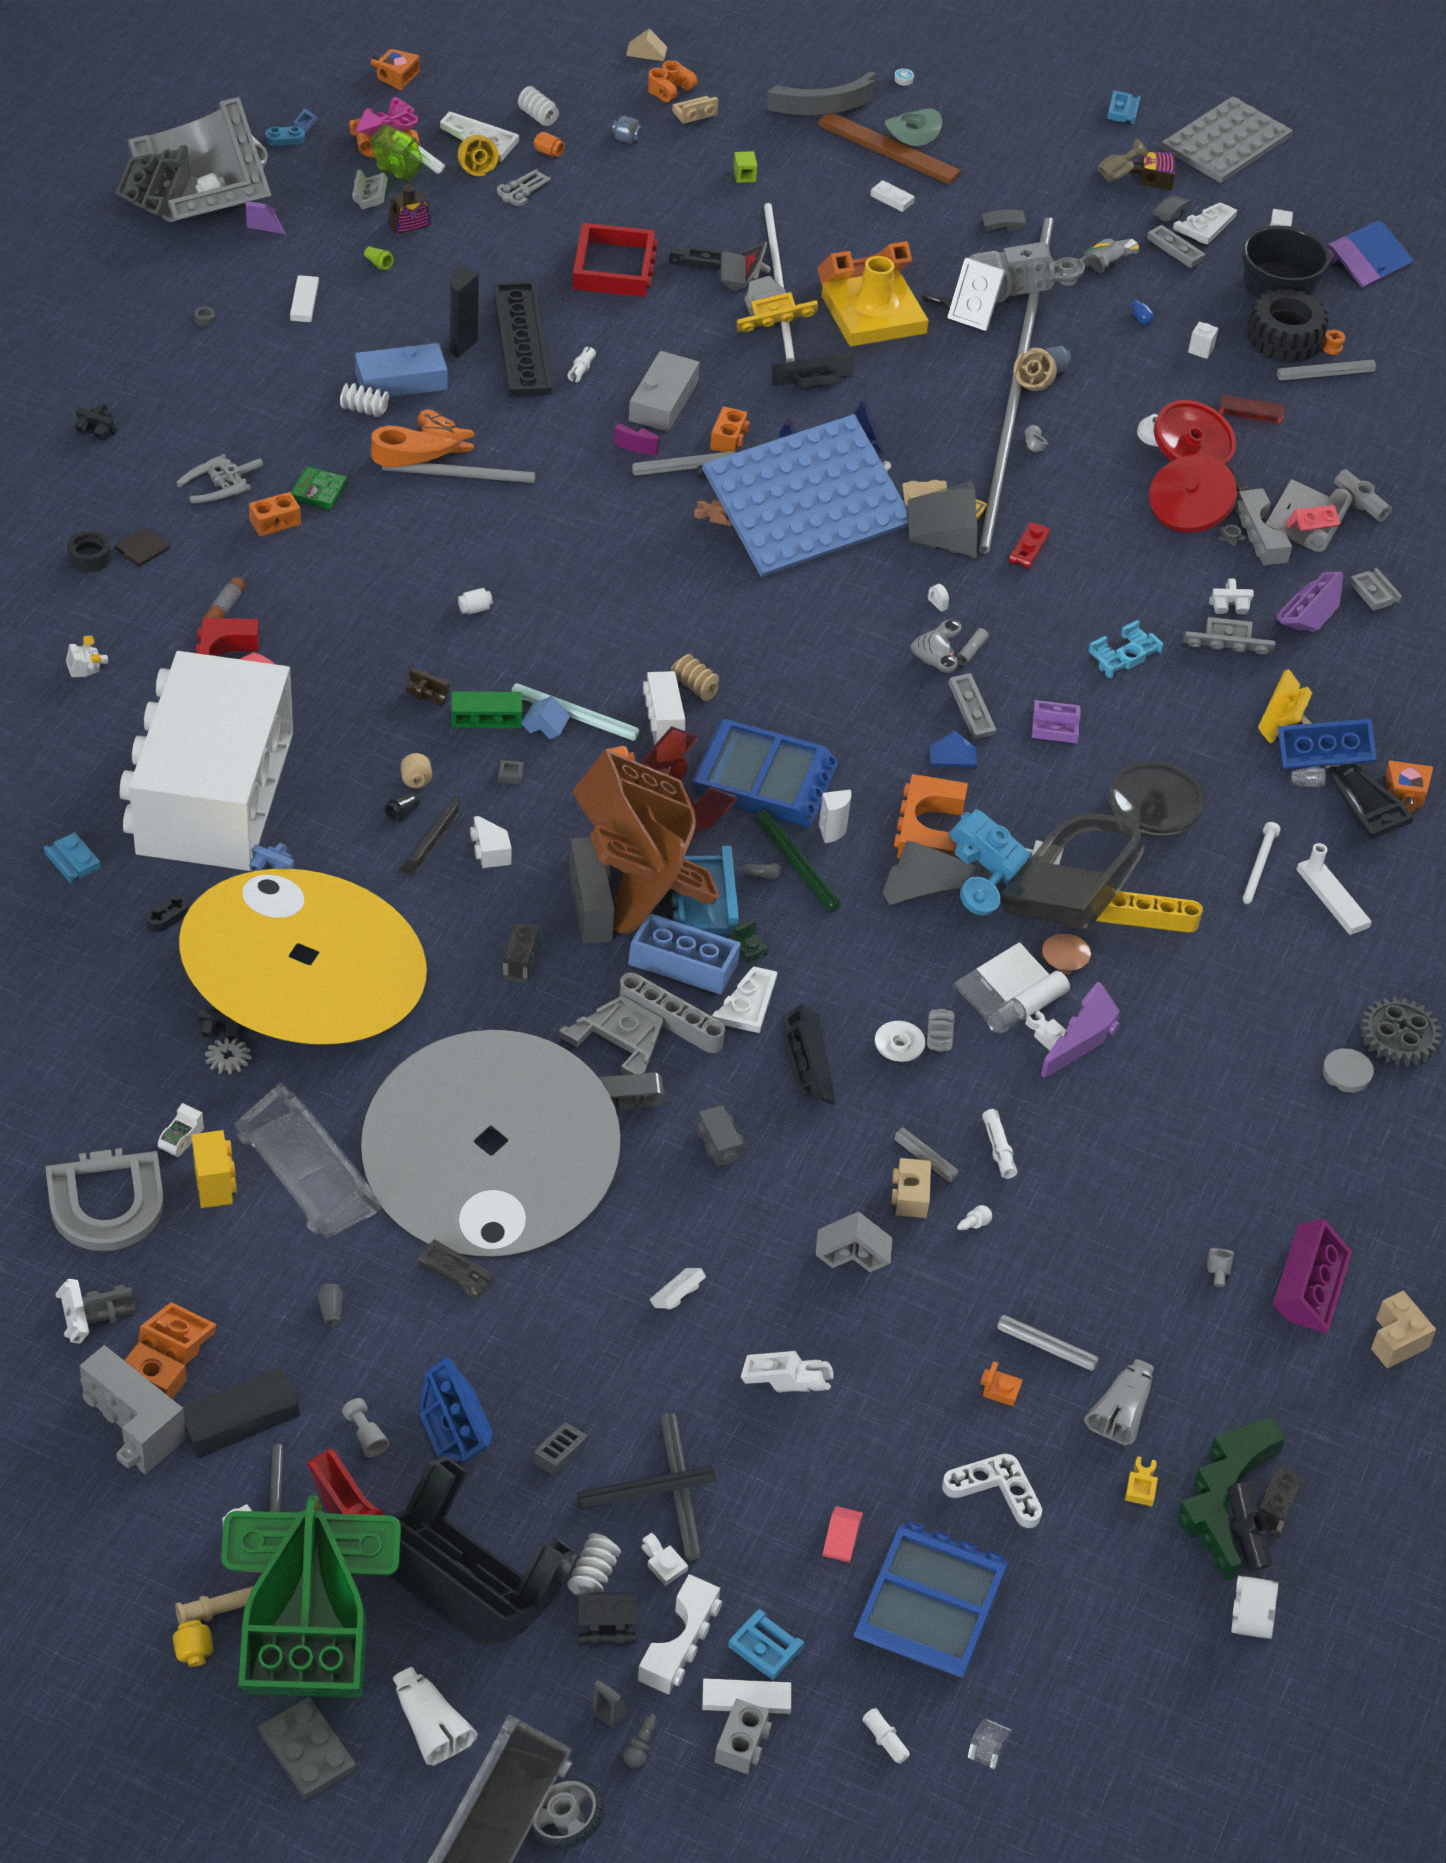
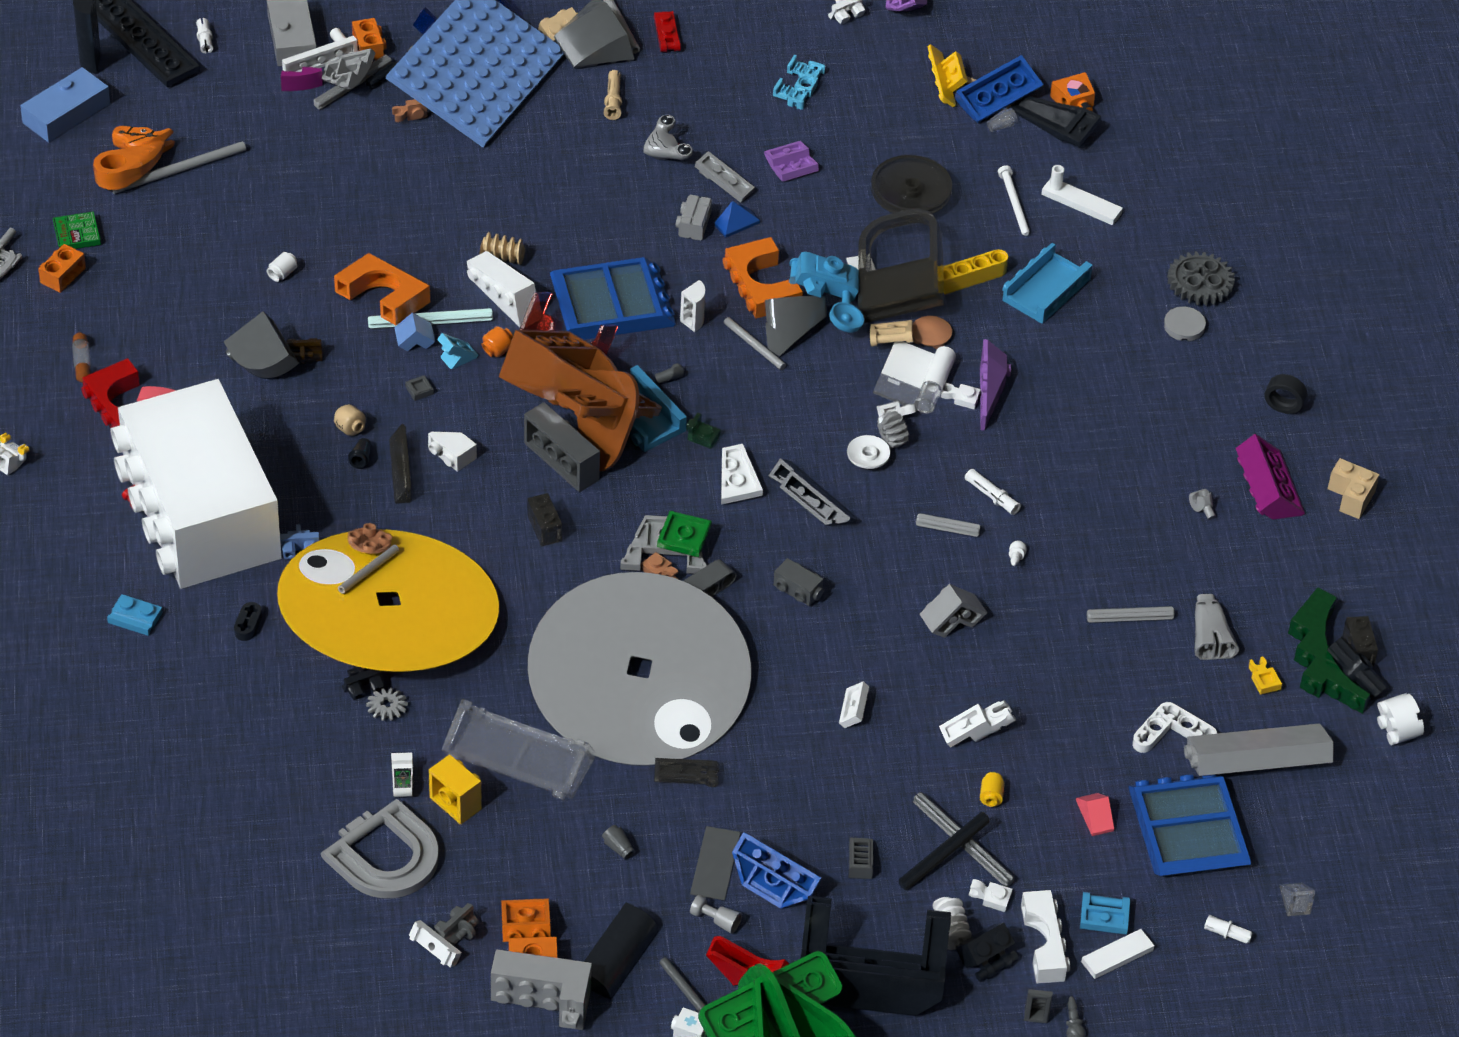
camera: 30 degrees left, 0 degrees up
(308, 917) = (369, 568): none -> light grey piece
(335, 890) = (369, 539): none -> nougat dish
(364, 401) = (56, 141): white piece -> none
(387, 664) = (261, 348): none -> dark grey brick
(406, 1379) = (714, 863): none -> dark grey sticker
(486, 709) = (363, 347): green brick -> none
(549, 643) = (372, 272): none -> orange arch
(571, 752) = (456, 351): none -> medium azure slope
(597, 1053) = (658, 565): none -> nougat plate
(643, 1031) = (684, 533): none -> green tile
(675, 427) = (319, 56): none -> white piece
(677, 451) = (349, 68): none -> light grey slope
(678, 1015) = (721, 511): light grey beam -> none
(684, 953) = (666, 462): medium blue brick -> none
(739, 1735) = (1136, 980): light grey brick -> none
(750, 1450) = (992, 789): none -> yellow brick
(798, 860) = (687, 353): dark green axle -> none
(874, 881) = (754, 343): none -> light grey bar
(910, 731) = (694, 217): none -> light grey brick
(912, 1189) = (959, 551): tan brick -> none
(921, 586) = (613, 100): none -> tan pin
(939, 597) = (632, 102): white tile -> none
(961, 1014) = (895, 406): none -> white plate
(972, 646) = (686, 129): light grey piece -> none
(1000, 1386) = (1122, 660): orange bracket -> none
(1018, 933) = (891, 332): none -> tan plate
(1068, 1558) = (1259, 749): none -> light grey brick
(1225, 960) = (1045, 284): none -> dark azure panel
(1228, 634) = (867, 35): light grey bracket -> none
(1406, 1188) = (1288, 383): none -> black tyre

